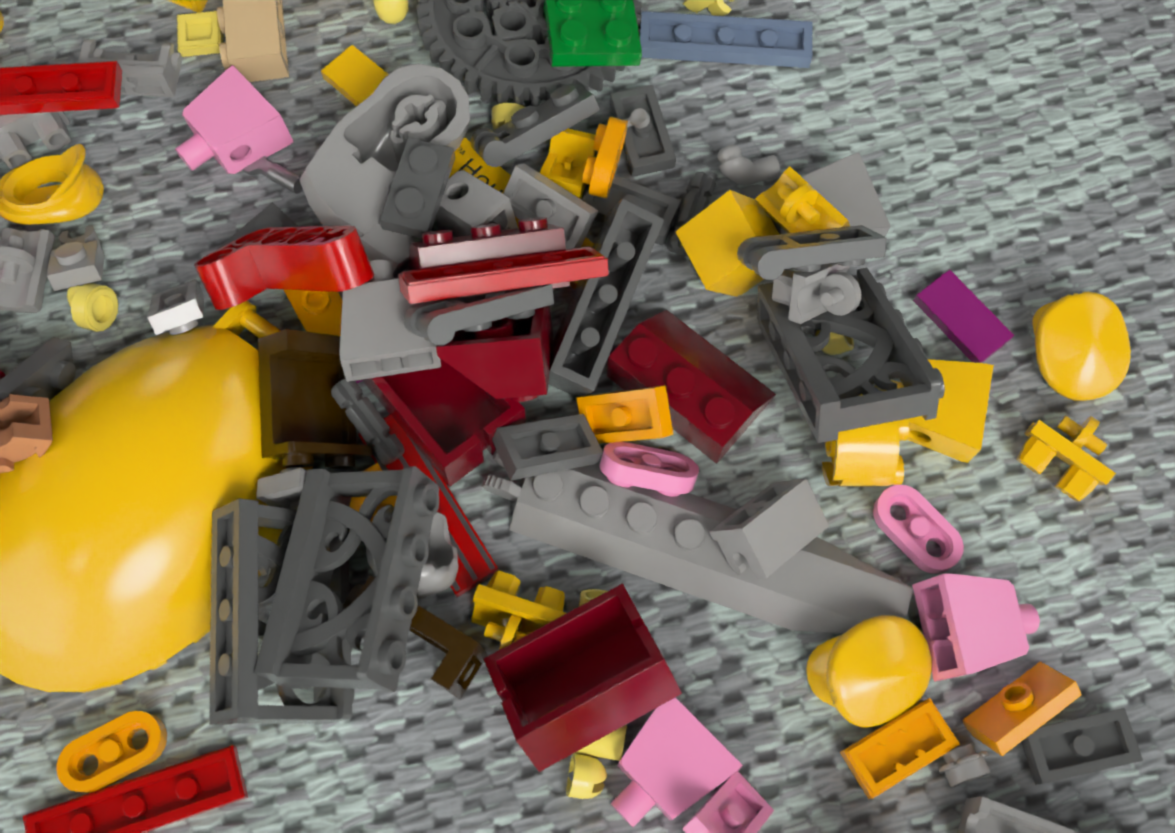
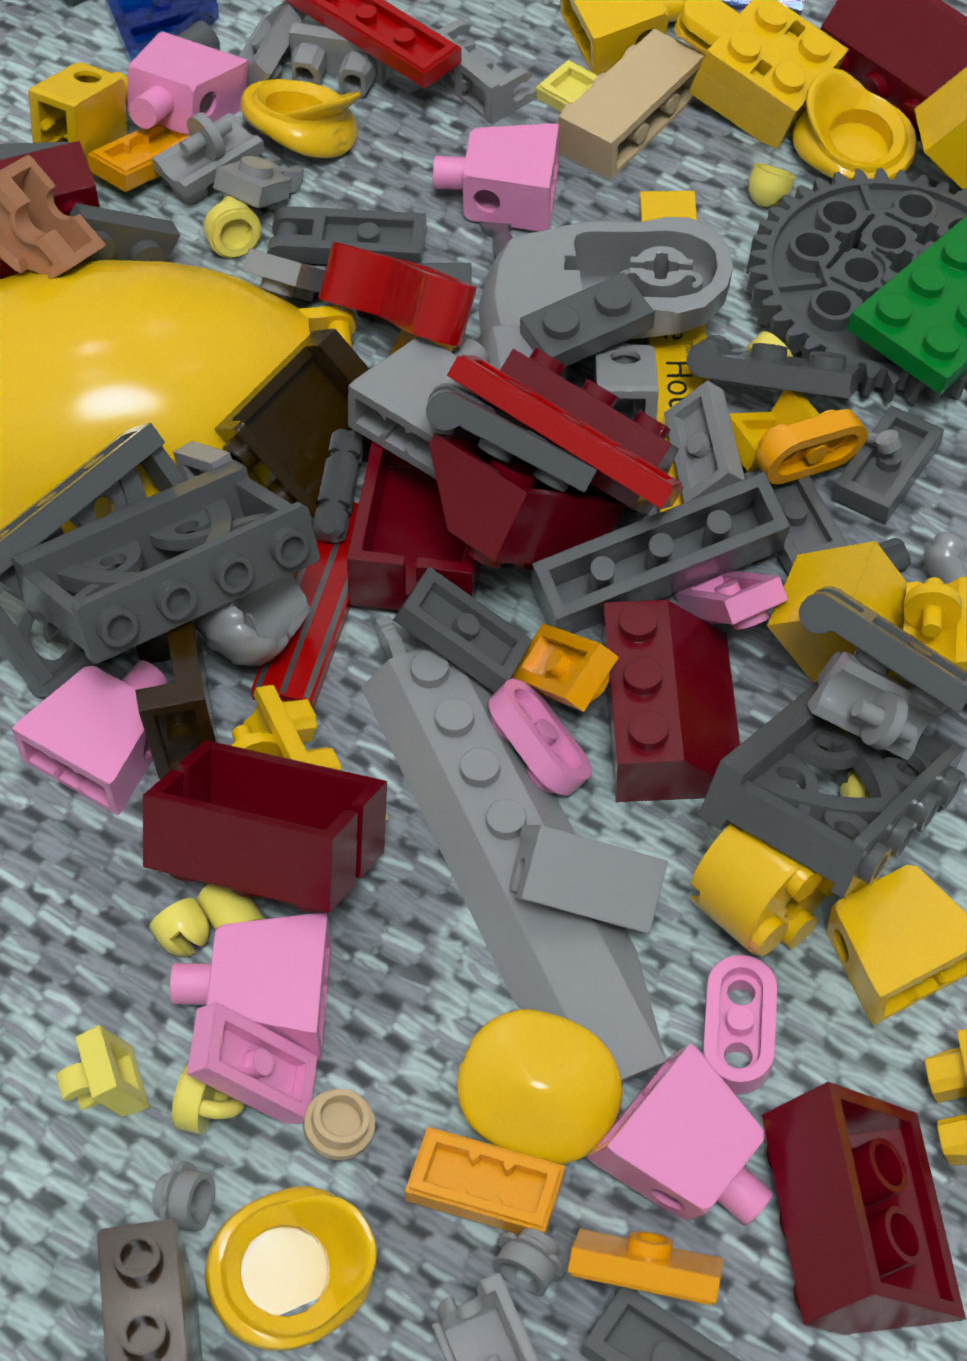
camera: 50 degrees right, 15 degrees down
(173, 250) = (308, 233): none -> dark grey plate
(404, 722) = (92, 734): none -> bright pink torso
(668, 287) = (733, 598): none -> bright pink plate
(793, 796) = (339, 1124): none -> tan plate
(1081, 577) = (860, 1213): none -> dark red slope

